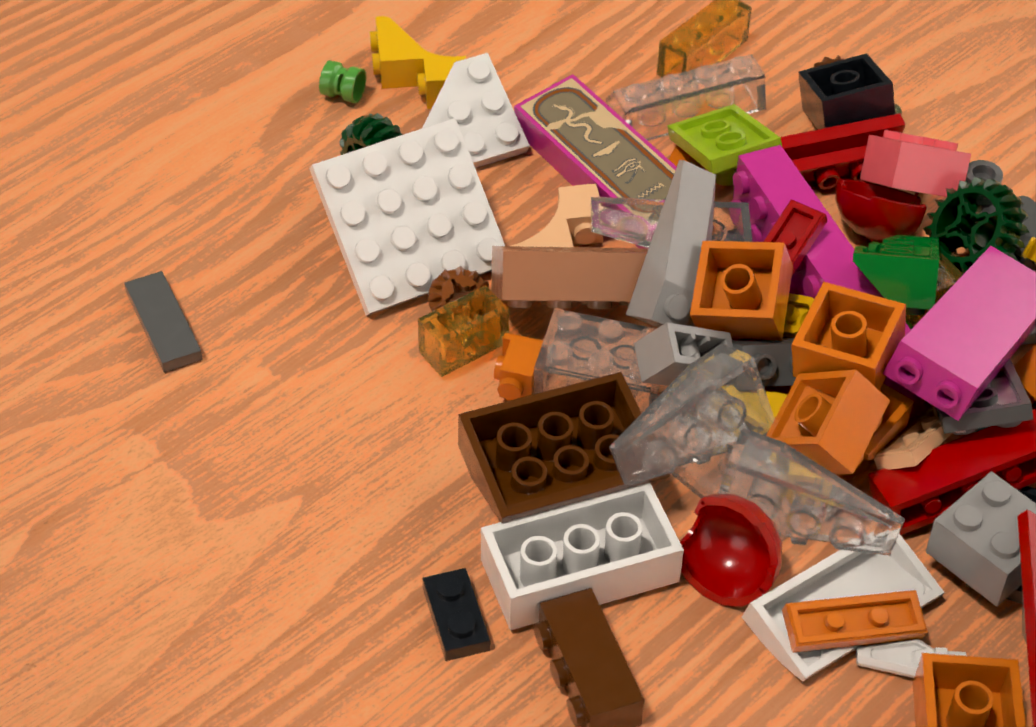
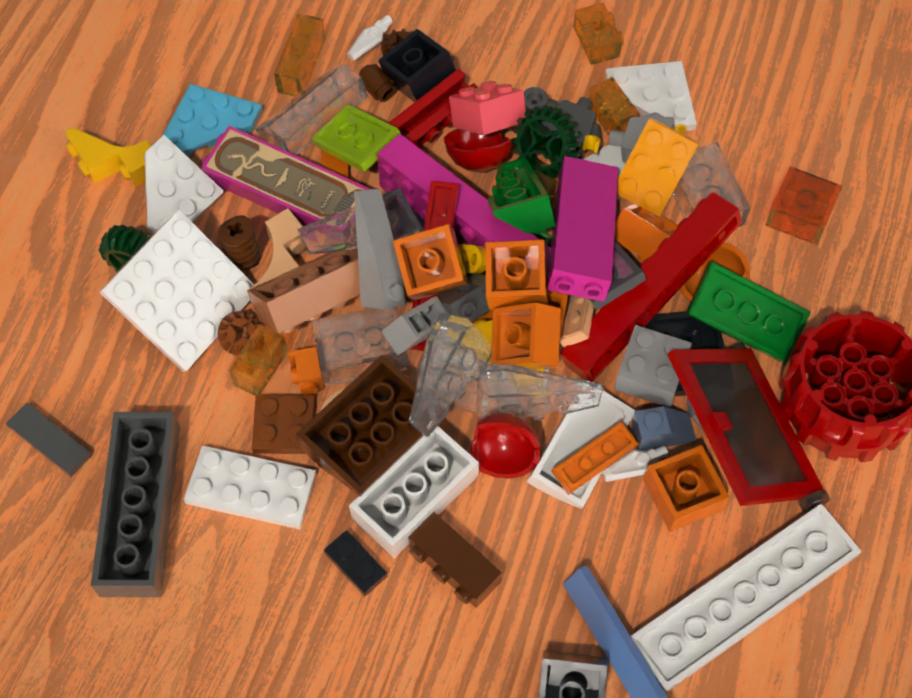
camera: 25 degrees left, 15 degrees up
(217, 426) = (136, 505): none -> dark grey brick
(342, 81) = (67, 193): bright green wheel -> none
(374, 472) = (250, 487): none -> white plate
(435, 415) = (277, 422): none -> dark orange plate
(514, 197) = (239, 242): none -> reddish brown piece
(552, 59) = (206, 115): none -> medium azure plate
(786, 101) = (377, 82): none -> reddish brown brick
(803, 56) = (369, 38): none -> white piece
(971, 624) = (661, 428): none -> sand blue slope

